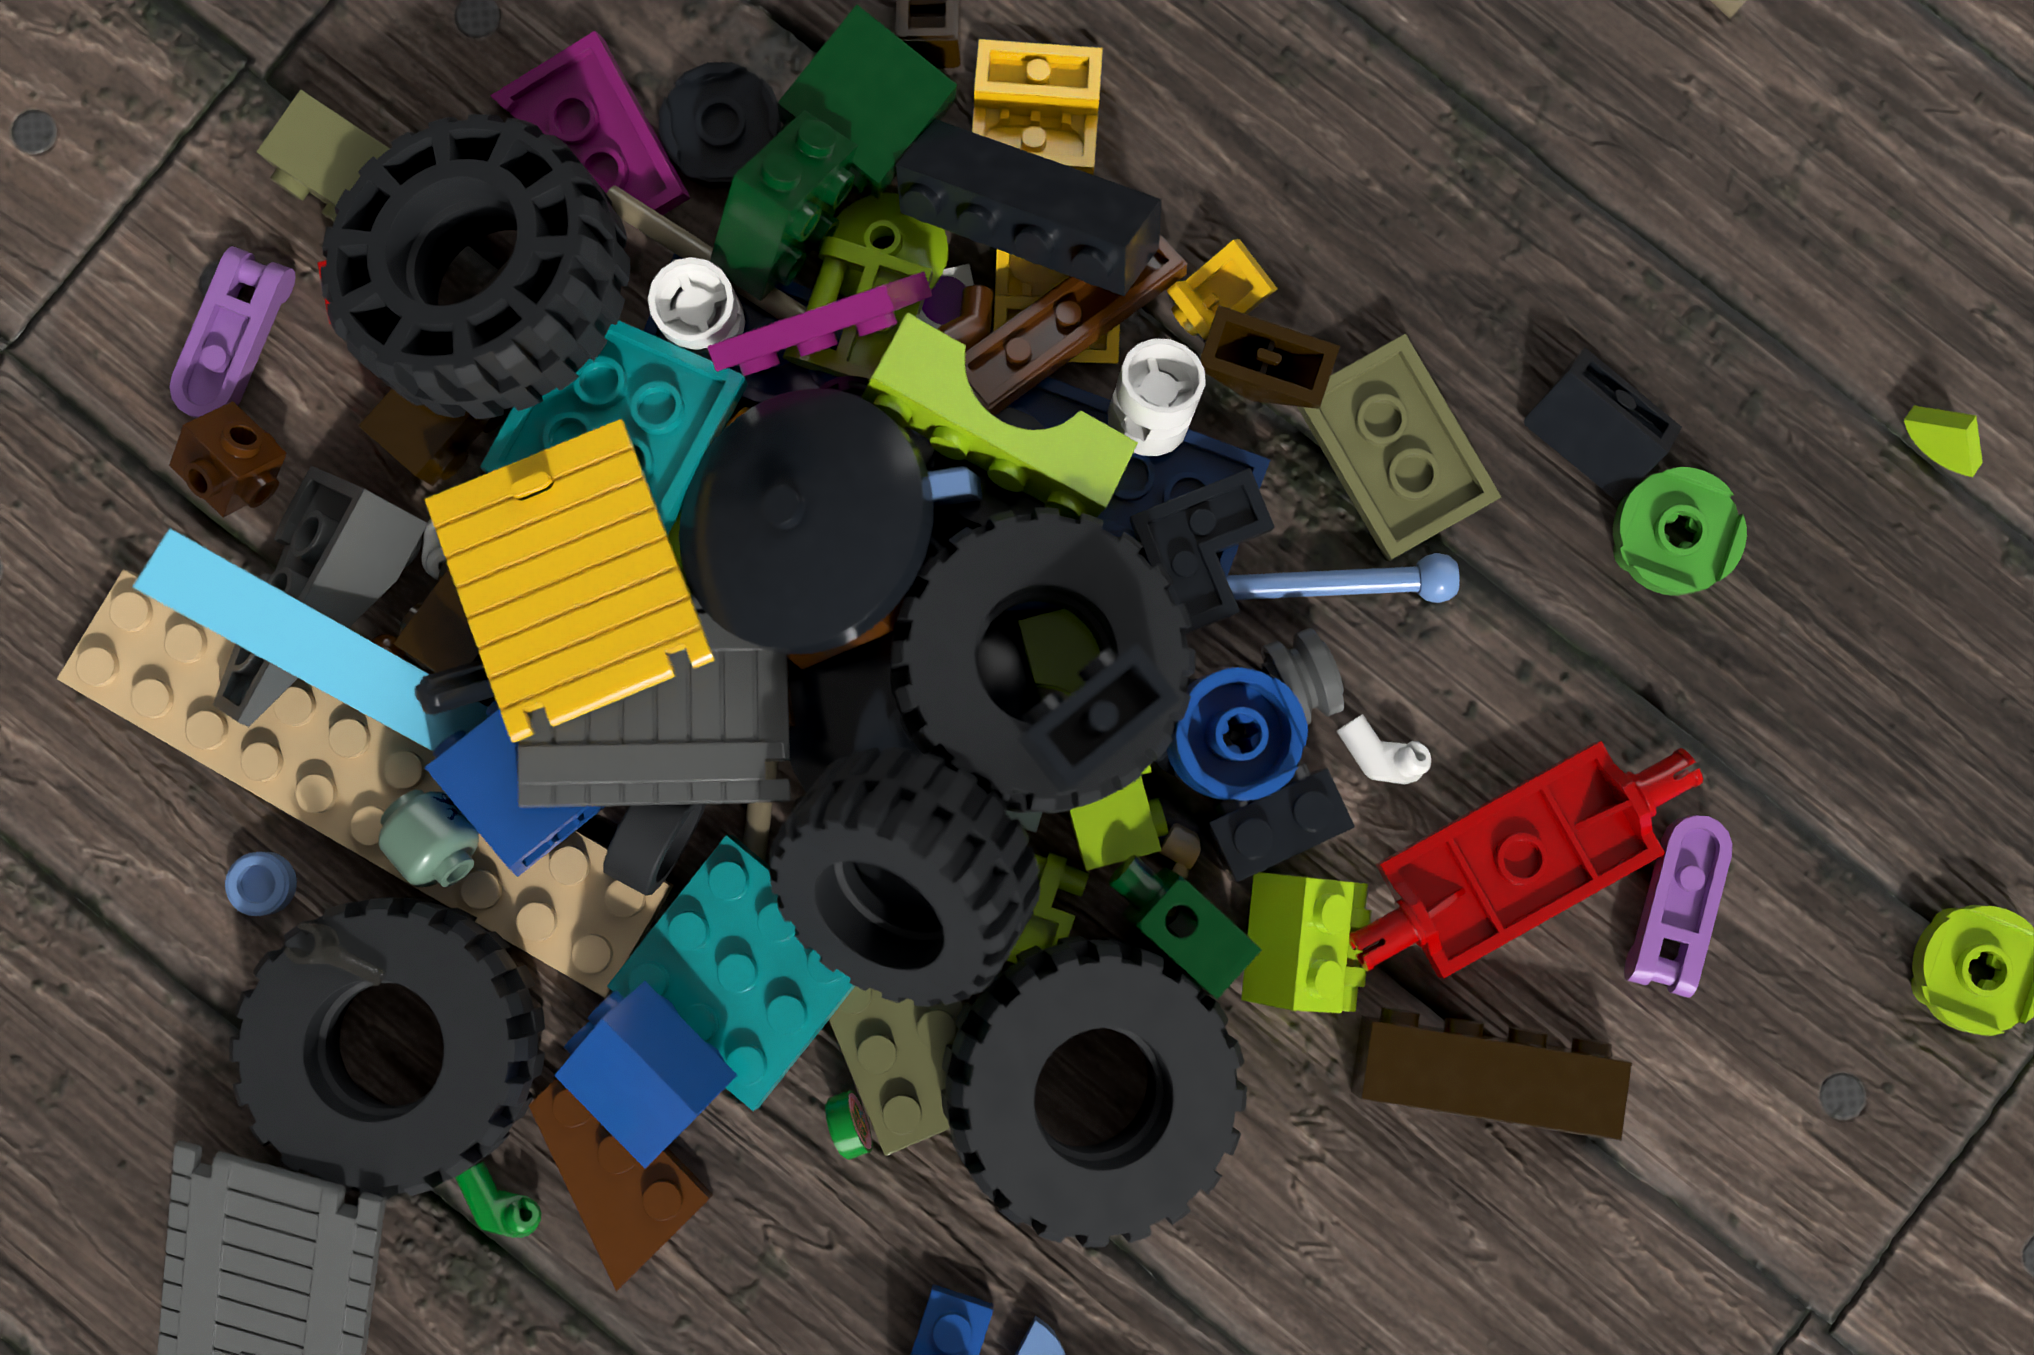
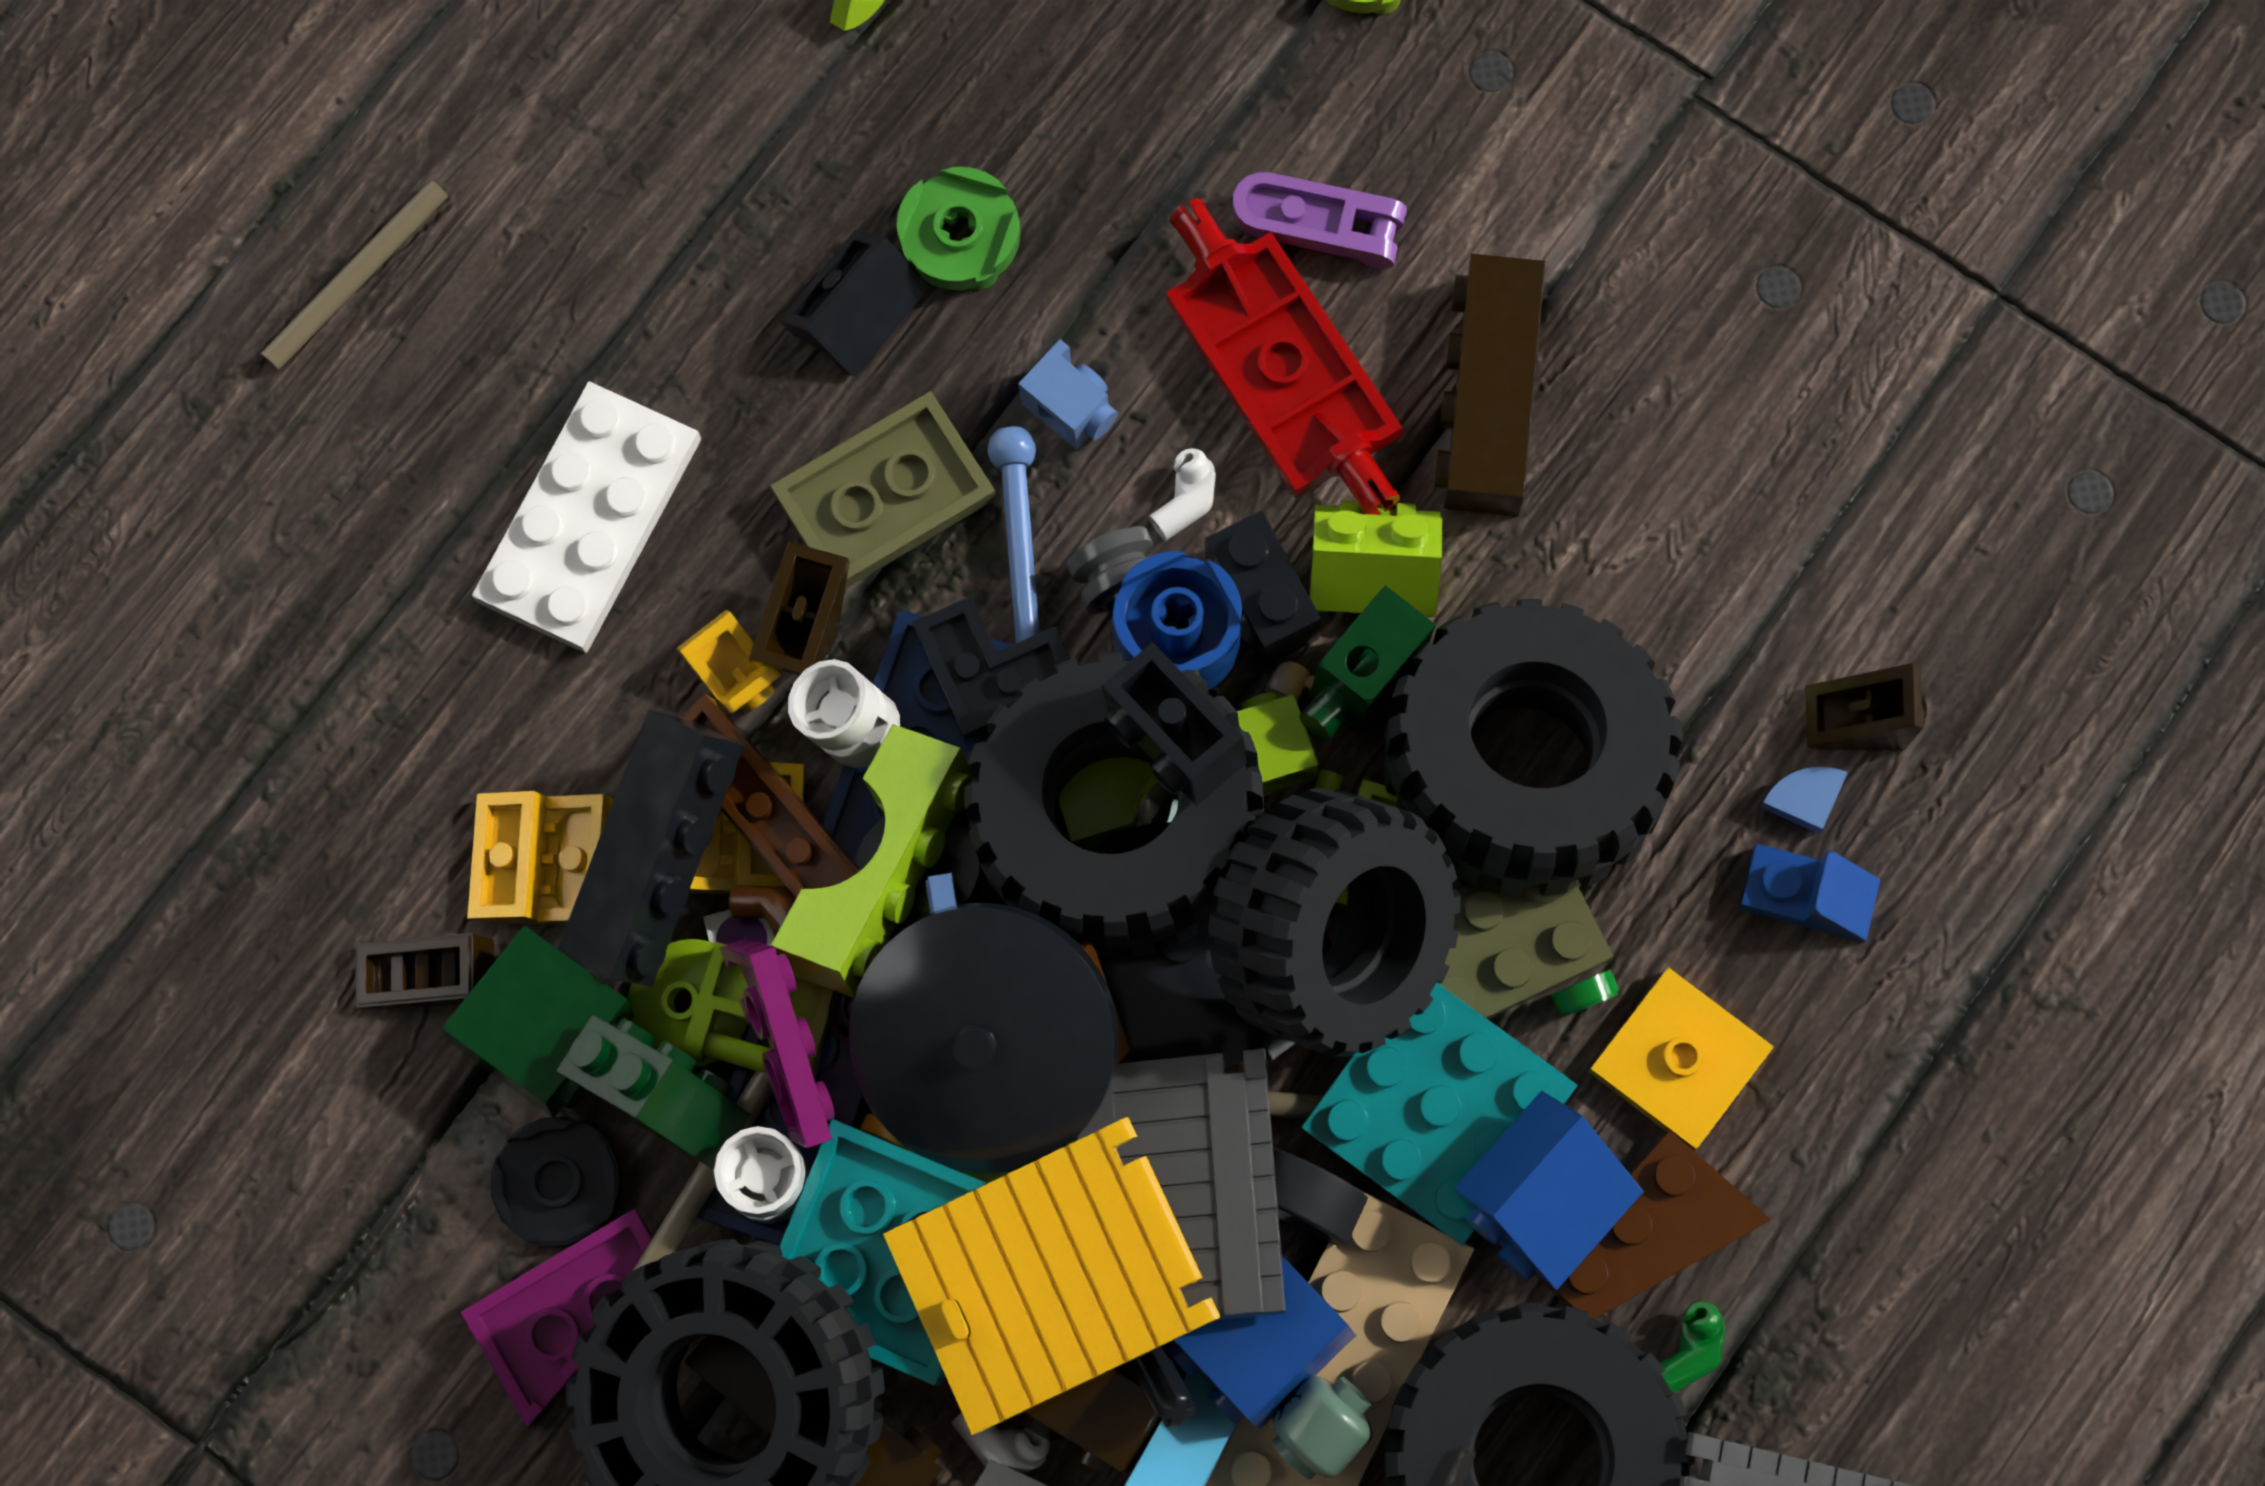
camera: 85 degrees left, 10 degrees down
(781, 1215) = (1681, 1059): none -> yellow plate
(1383, 156) = (587, 517): none -> white plate
(1491, 636) = (1067, 397): none -> medium blue brick

